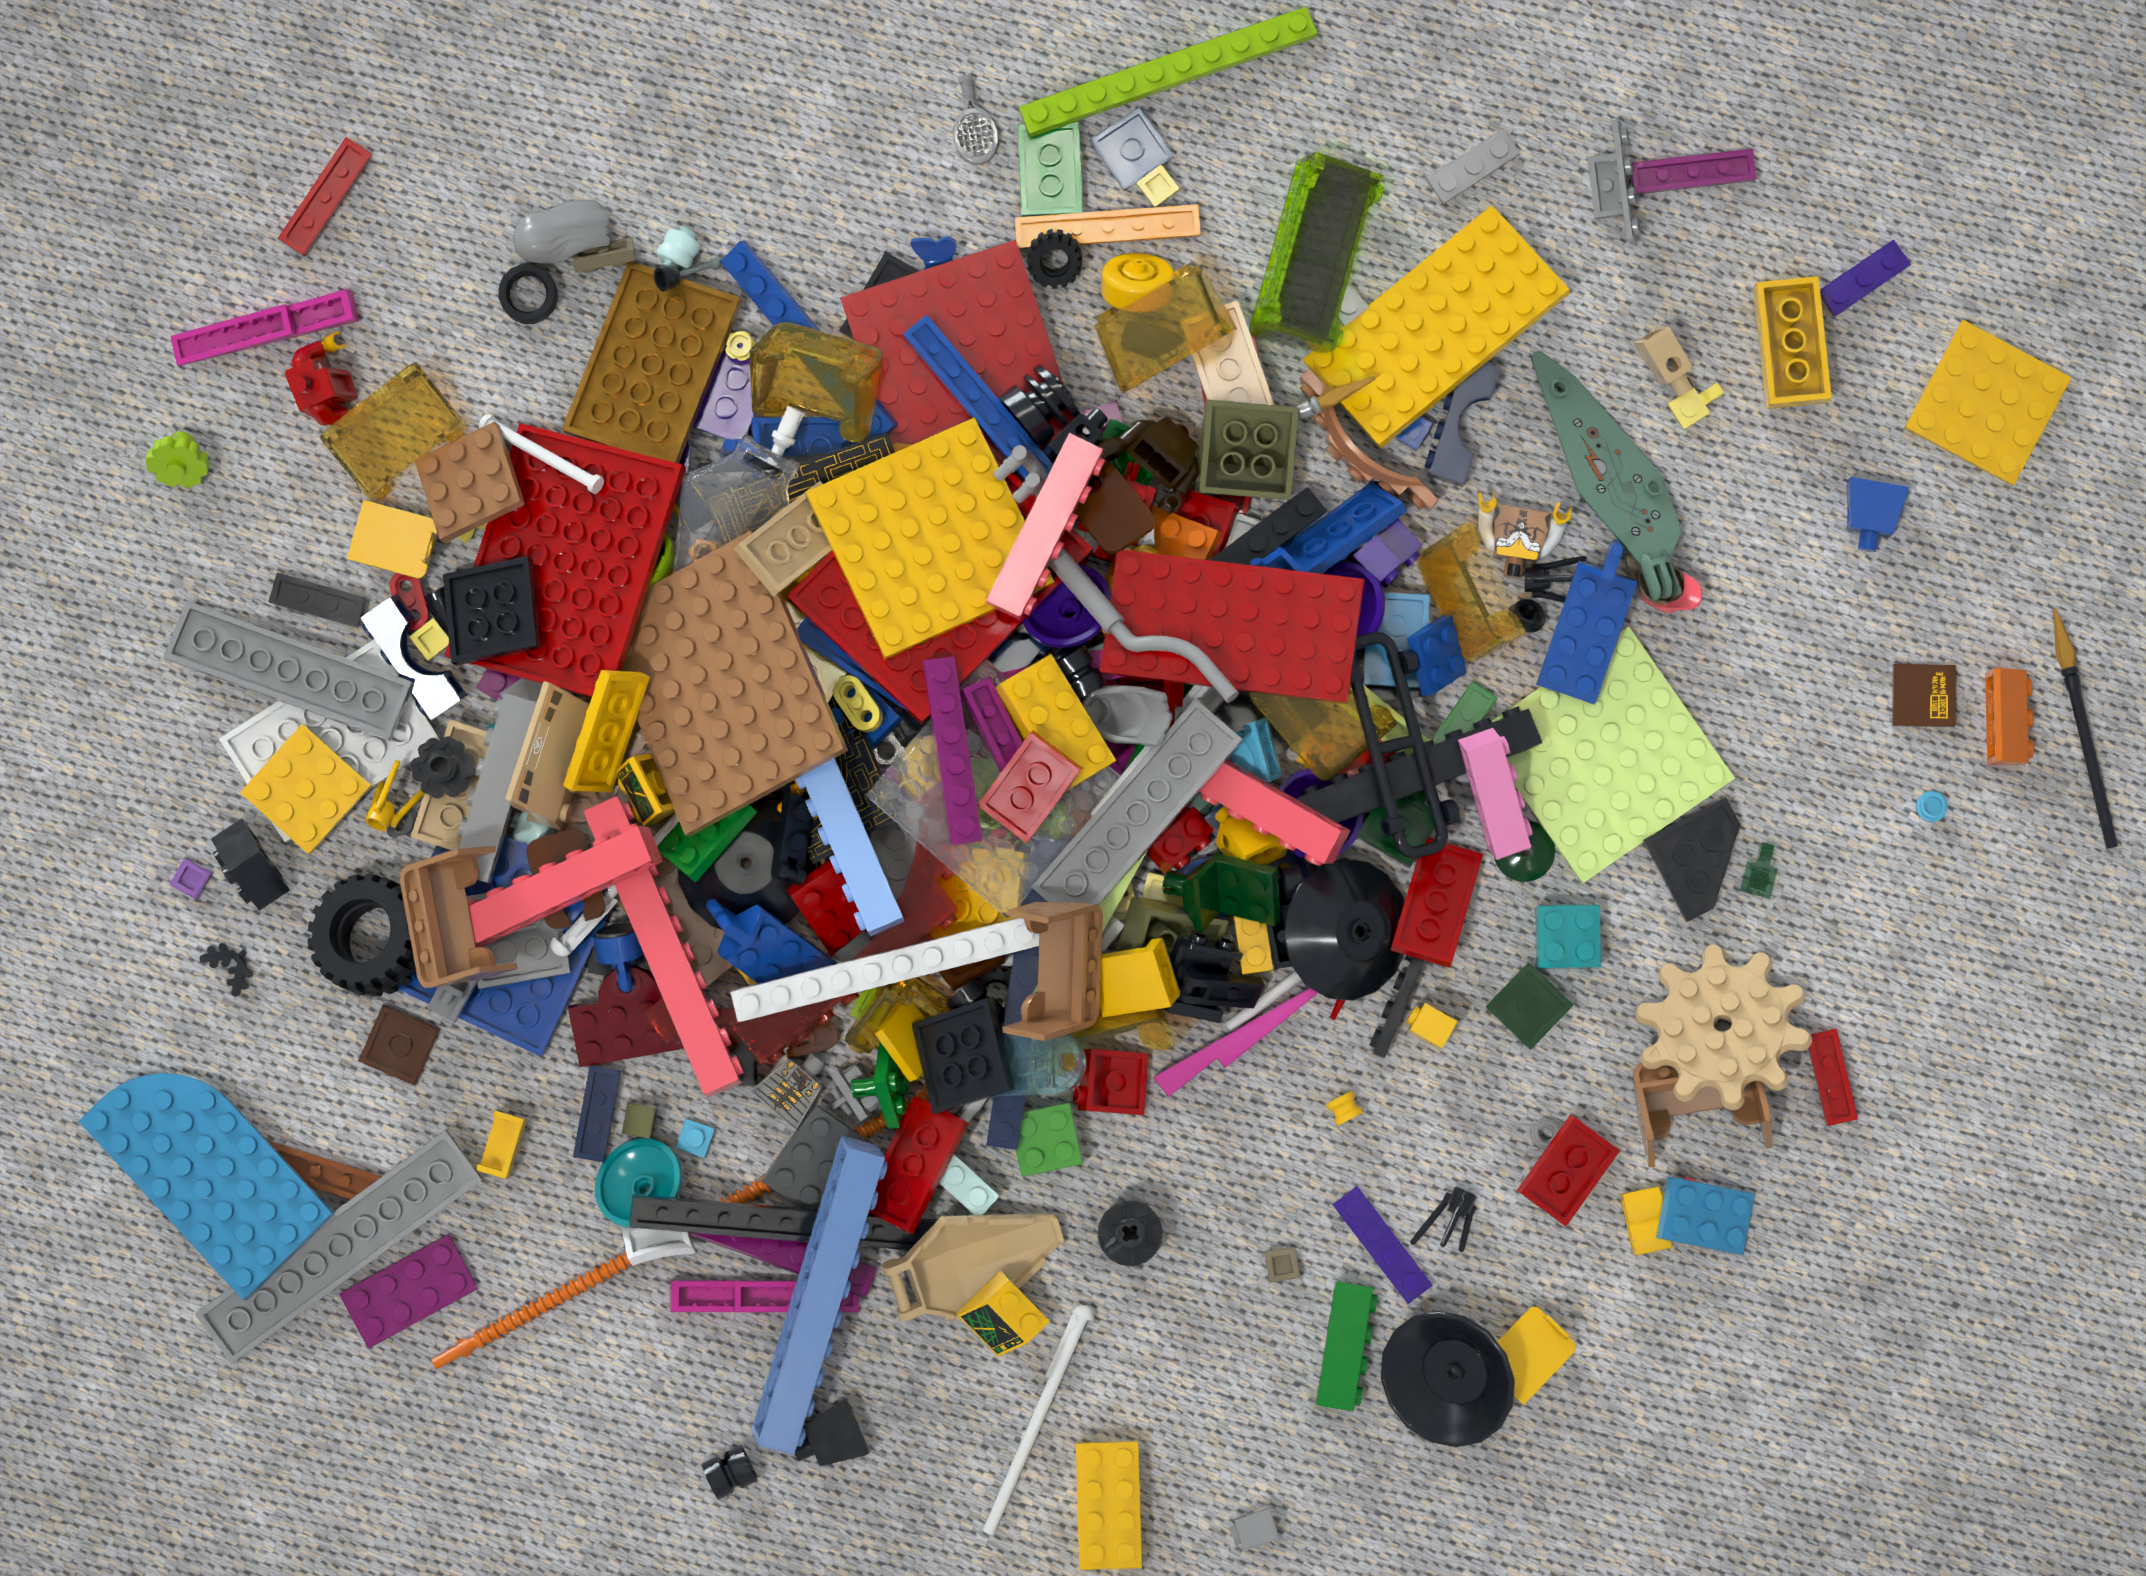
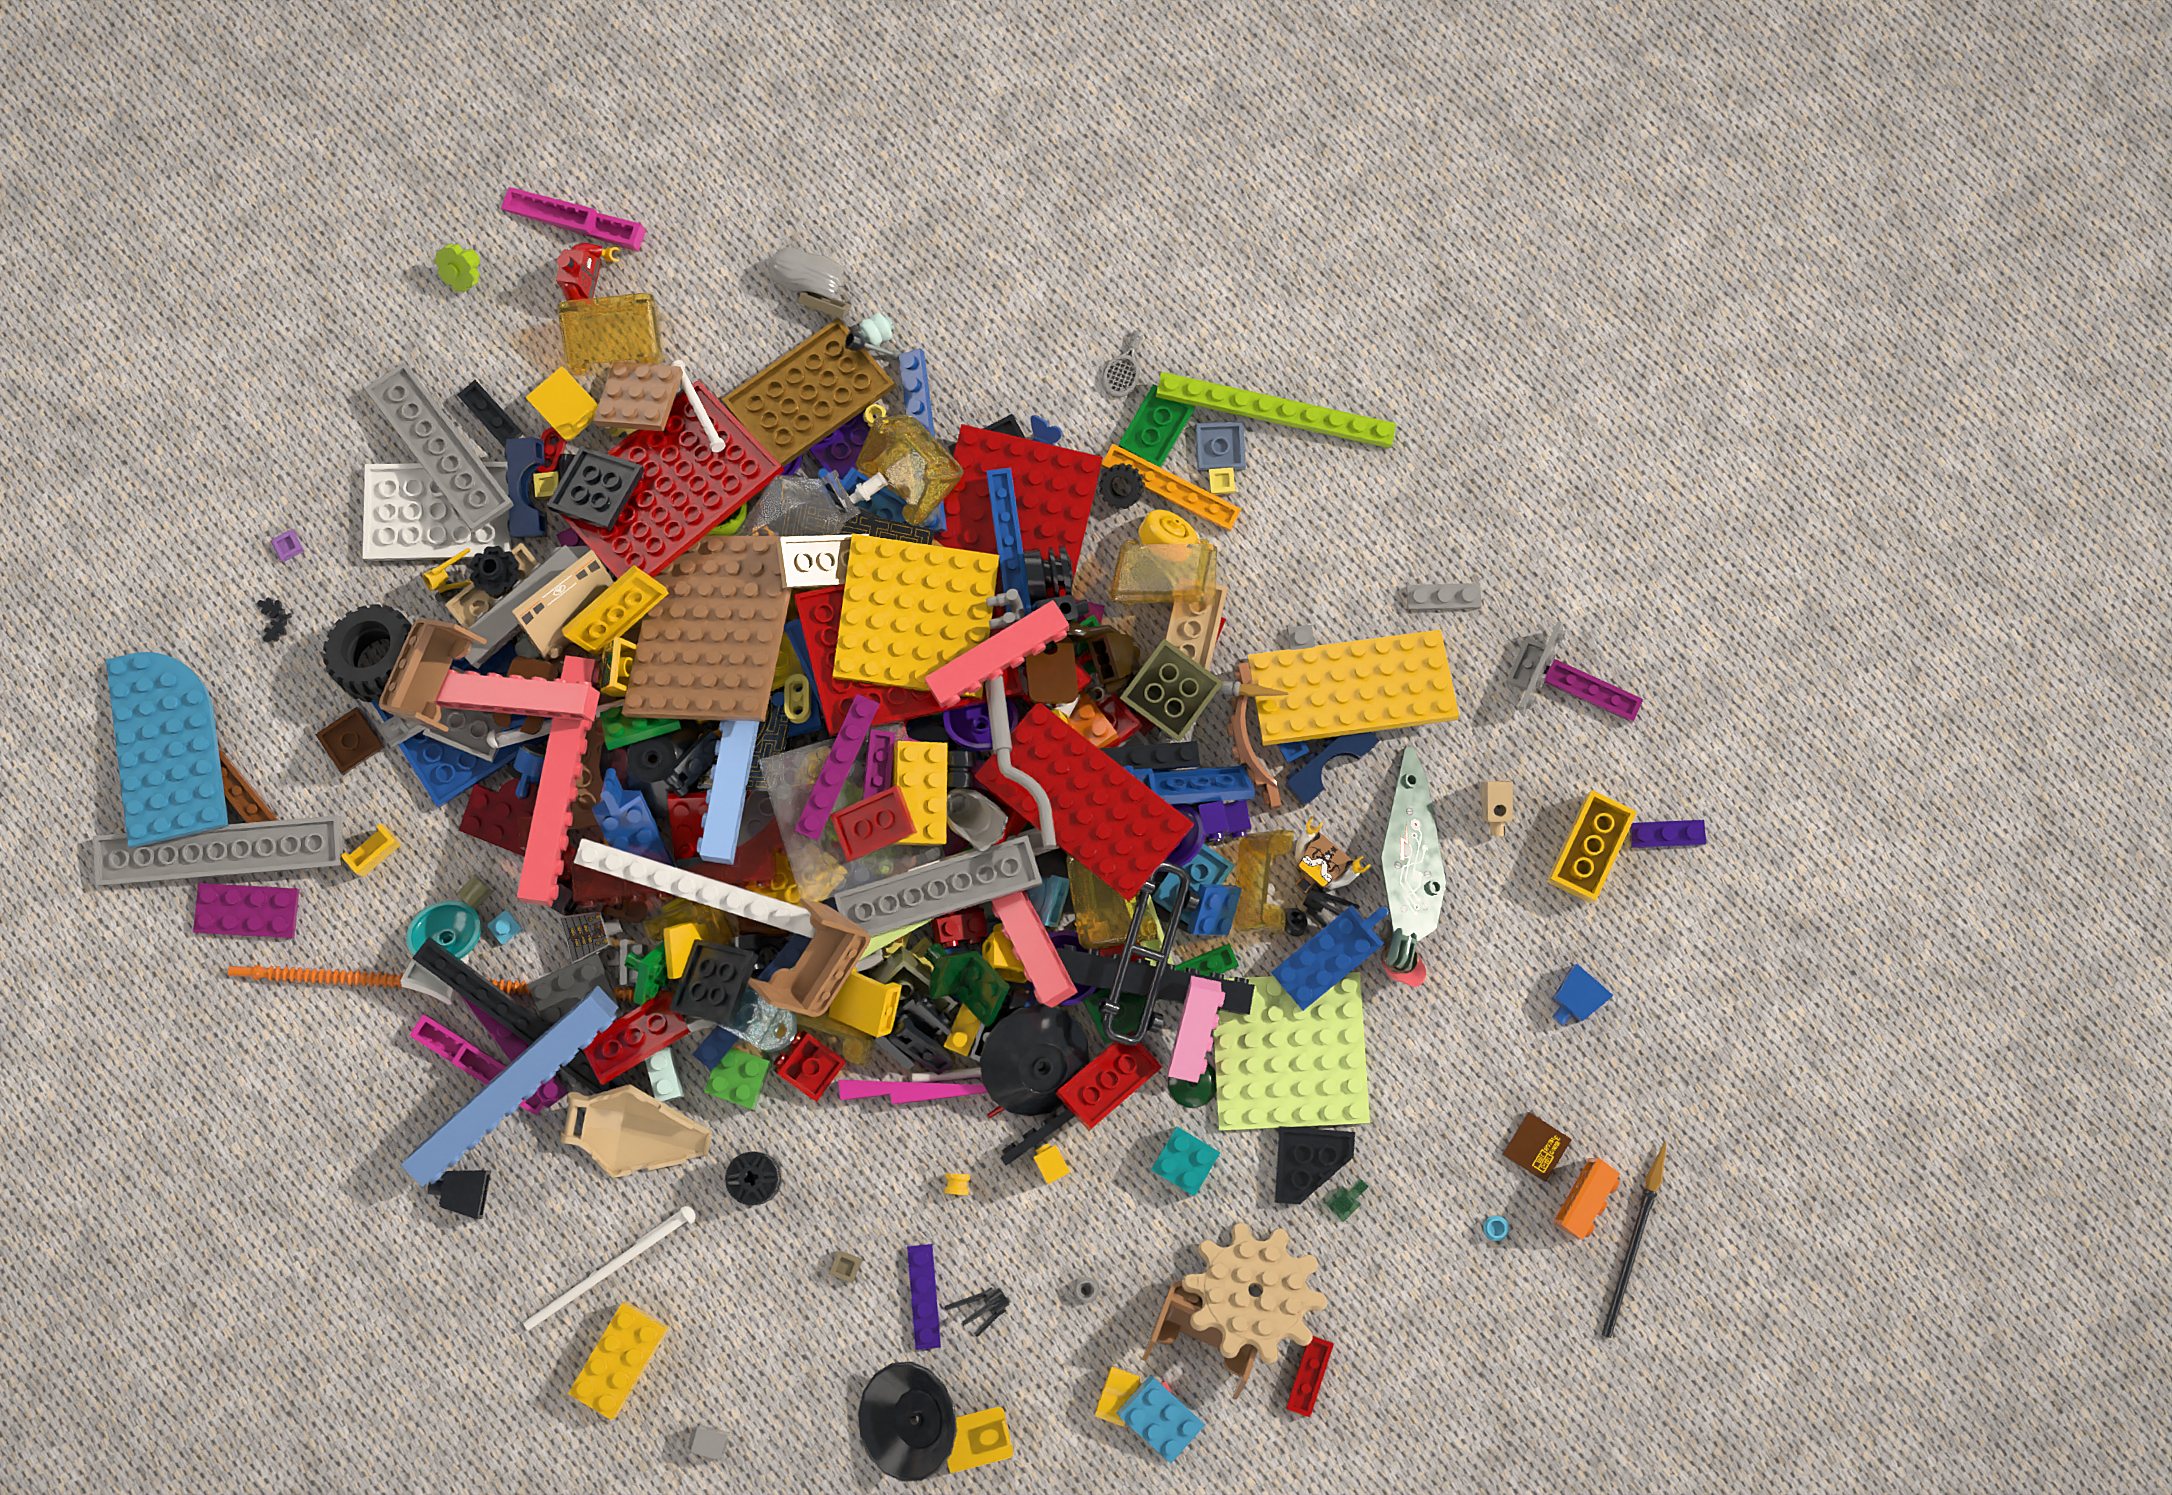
camera: 25 degrees right, 5 degrees down
(248, 865) = (327, 559): black brick -> none
(305, 789) = (398, 531): yellow plate -> none
(325, 196) = (667, 158): red plate -> none
(336, 384) = (592, 279): red tile -> none
(511, 277) = (758, 317): black tyre -> none
(596, 1113) = (449, 869): dark blue plate -> none
(729, 1472) = (371, 1171): black wheel -> none
(1002, 1315) = (631, 1180): yellow slope -> none
(1314, 253) = (1300, 588): clear smoke windscreen -> none
(1345, 1346) = (852, 1351): green brick -> none
(1529, 1006) = (1129, 1192): dark green plate -> none
(1568, 1170) = (1084, 1325): red plate -> none
(1692, 406) = (1494, 848): light yellow plate -> none
(1987, 402) = (1703, 971): yellow plate -> none

